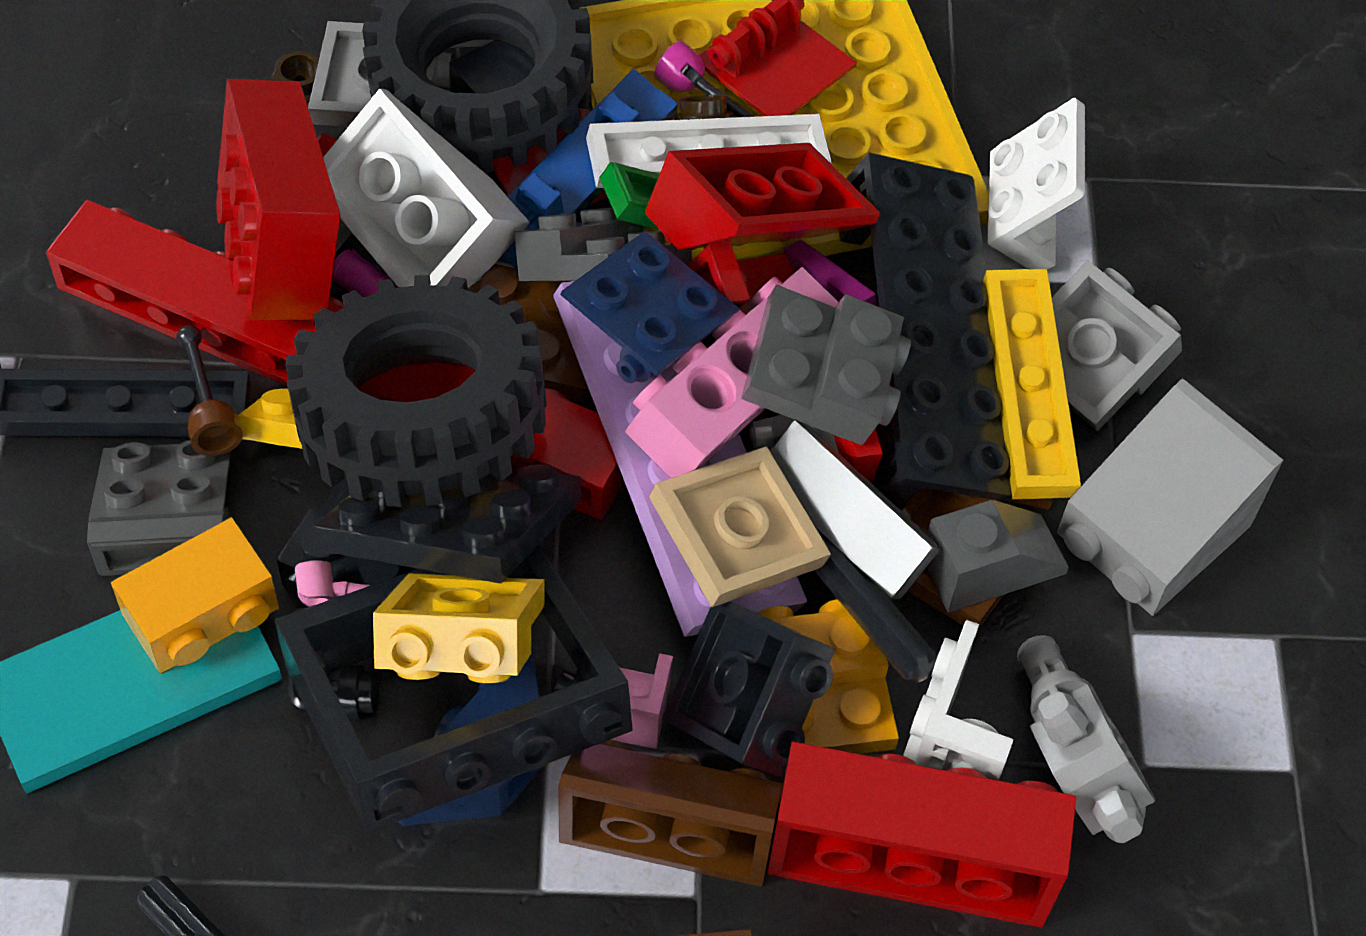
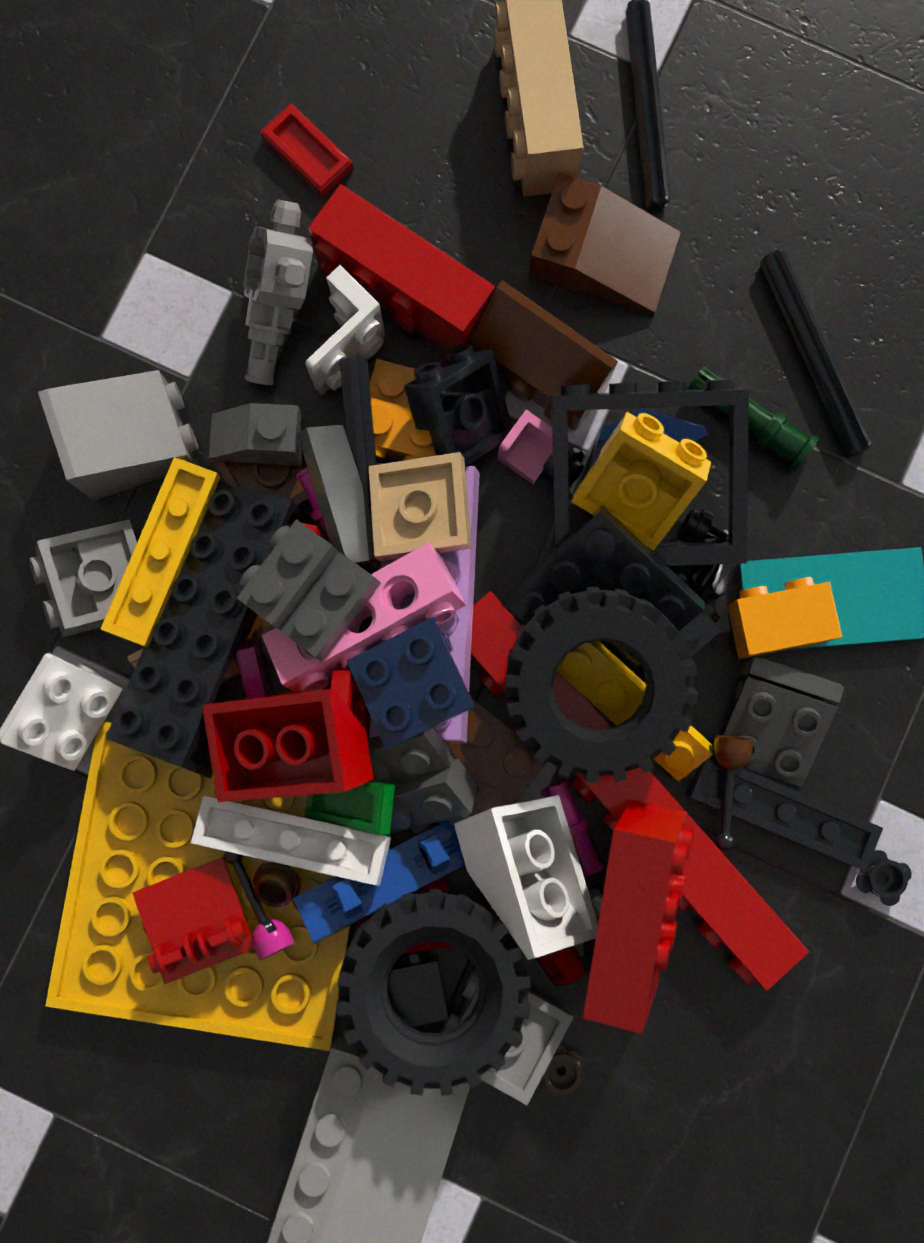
camera: 155 degrees left, 25 degrees up
(298, 860) = (770, 429): none -> dark green pin
(316, 583) = (705, 586): bright pink hand -> none

